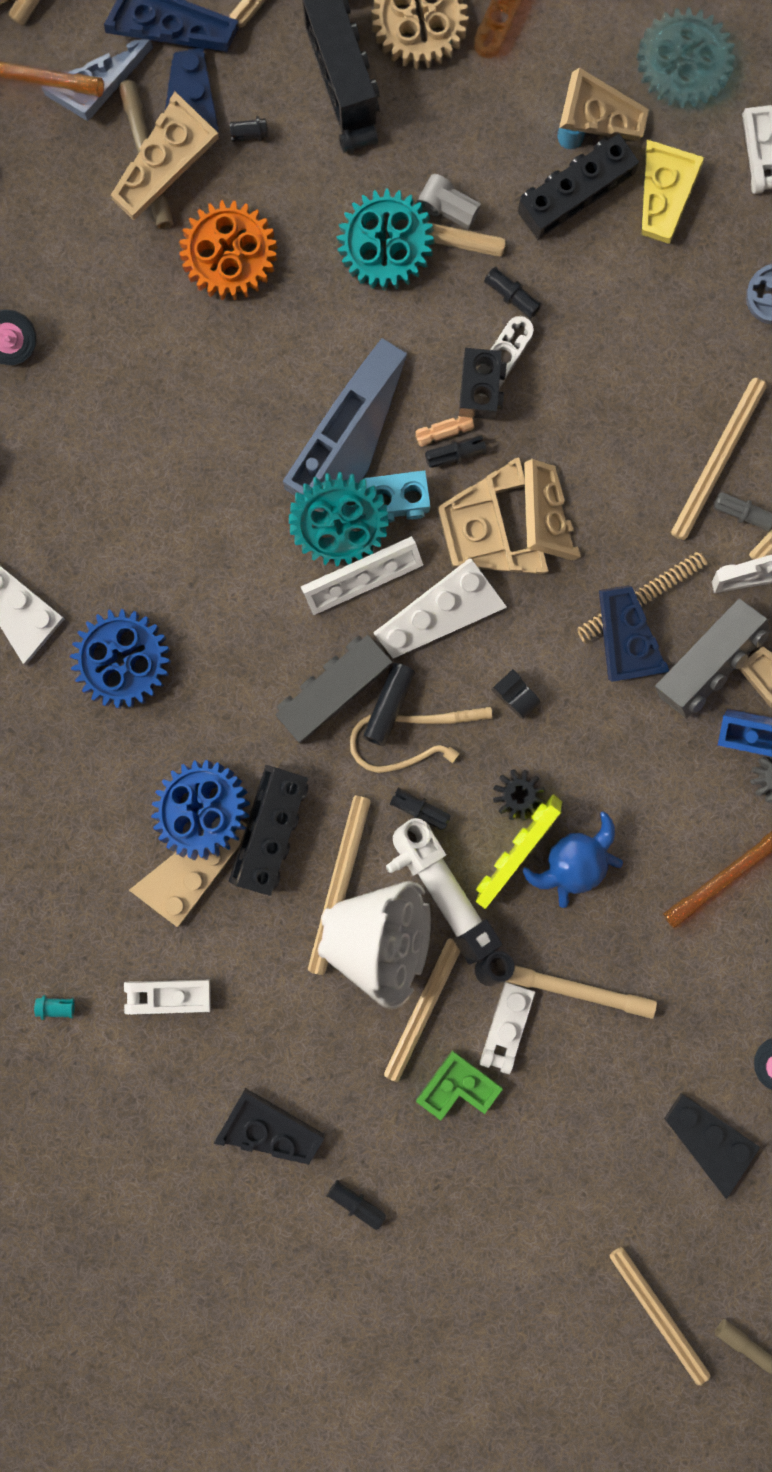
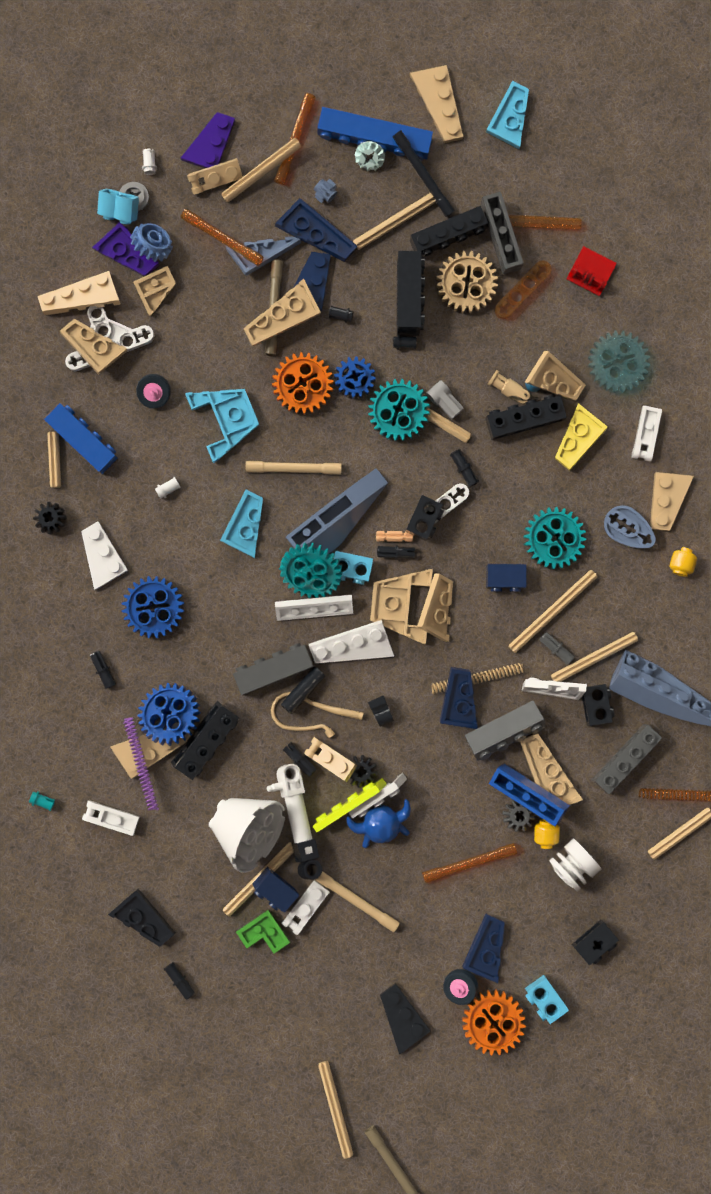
camera: 15 degrees right, 0 degrees up
(77, 779) = (102, 669): none -> black axle
(80, 475) = (167, 488): none -> white pin
(140, 331) = (232, 413): none -> medium azure wing
(180, 895) = (142, 768): none -> medium lavender piece
(214, 489) = (244, 524): none -> medium azure wing
(305, 365) = (325, 468): none -> tan piece
(307, 202) = (346, 380): none -> blue gear
(342, 871) = (240, 779): tan axle -> none
(453, 1017) = (275, 889): none -> dark blue brick
(468, 792) = (331, 759): none -> tan plate
(538, 152) = (509, 387): none -> tan piece
(574, 805) = (389, 789): none -> white wing
(632, 430) = (506, 576): none -> dark blue brick
(696, 325) = (567, 526): none -> teal gear

